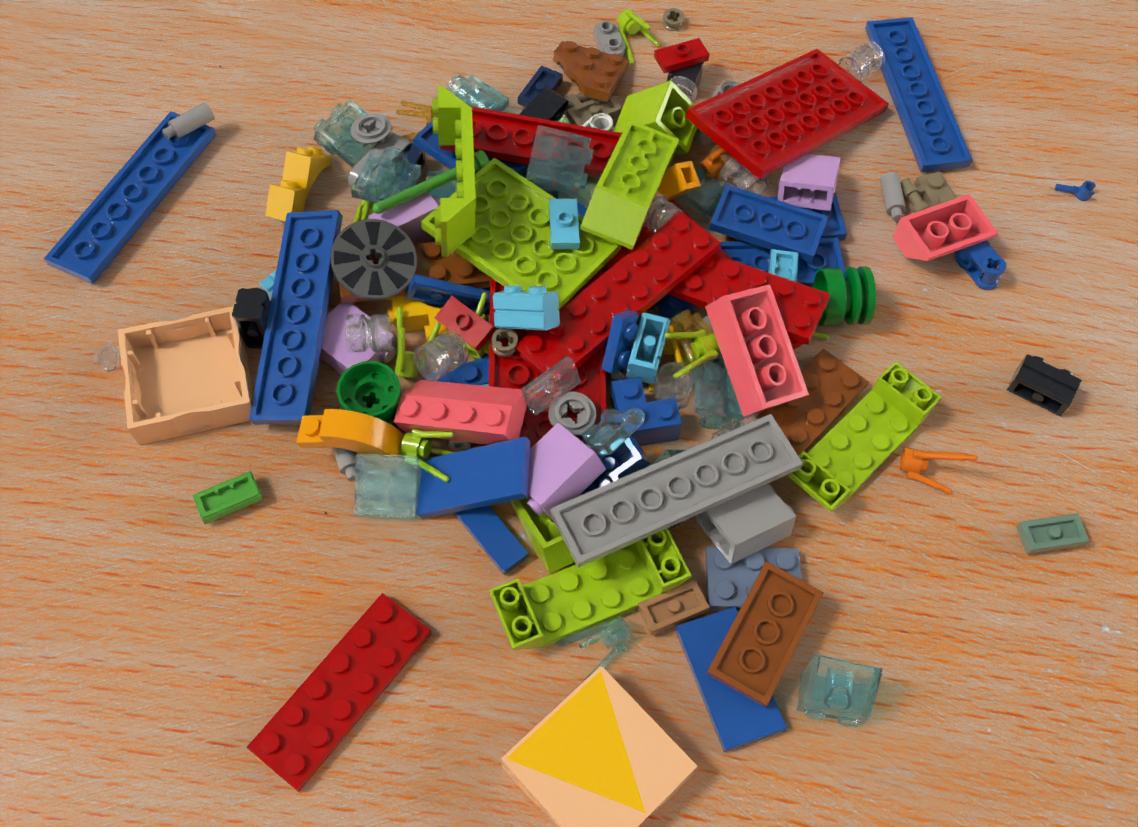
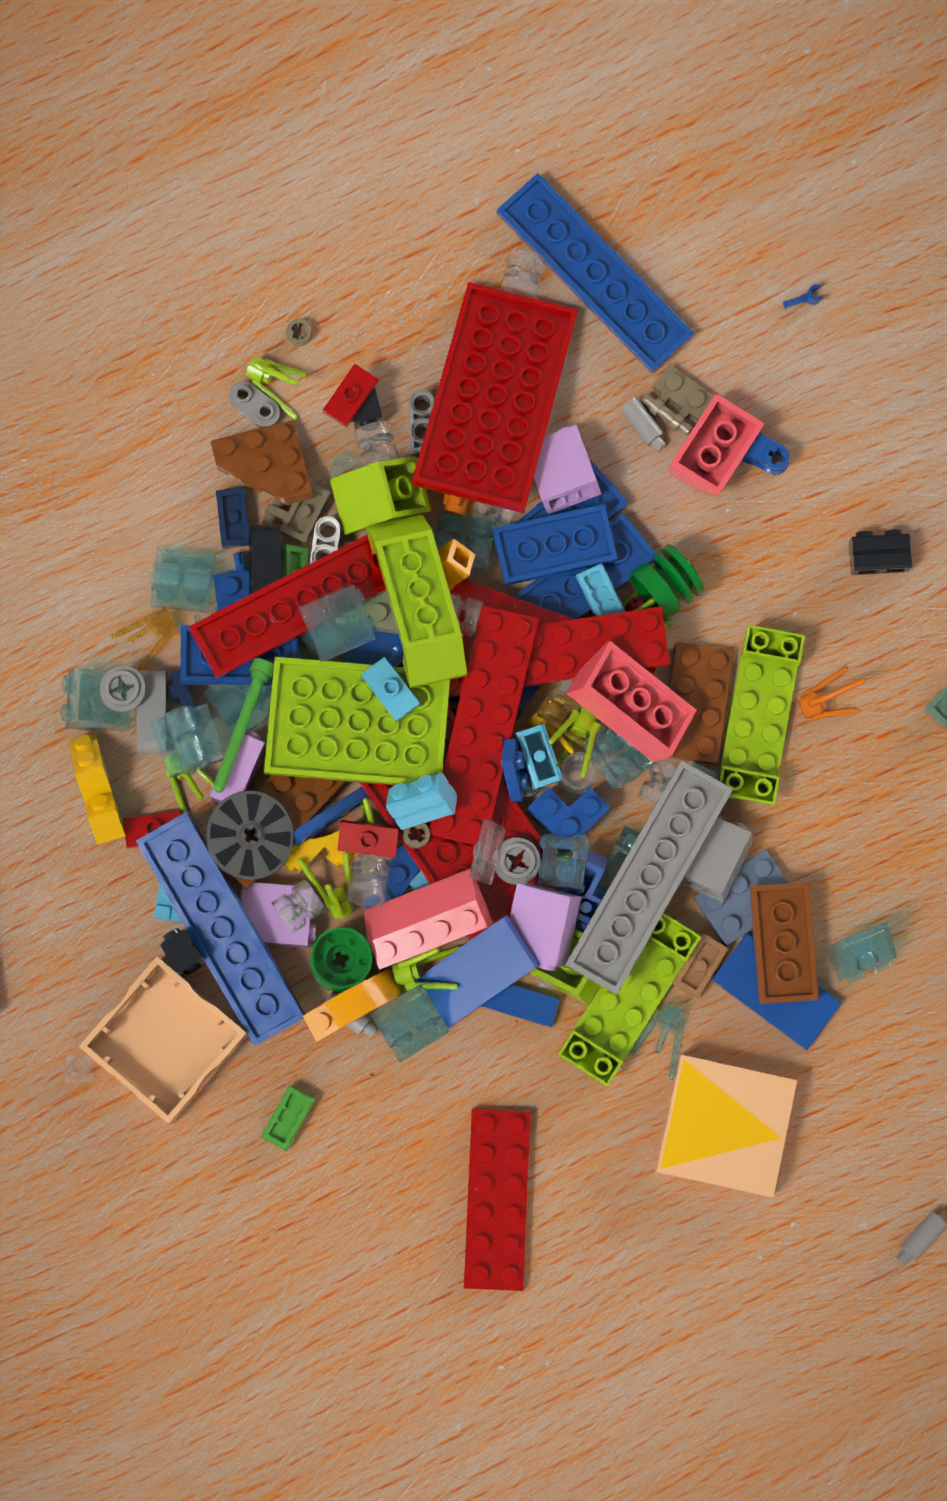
camera: 35 degrees left, 20 degrees up
(455, 127) = (222, 659): lime slope -> none

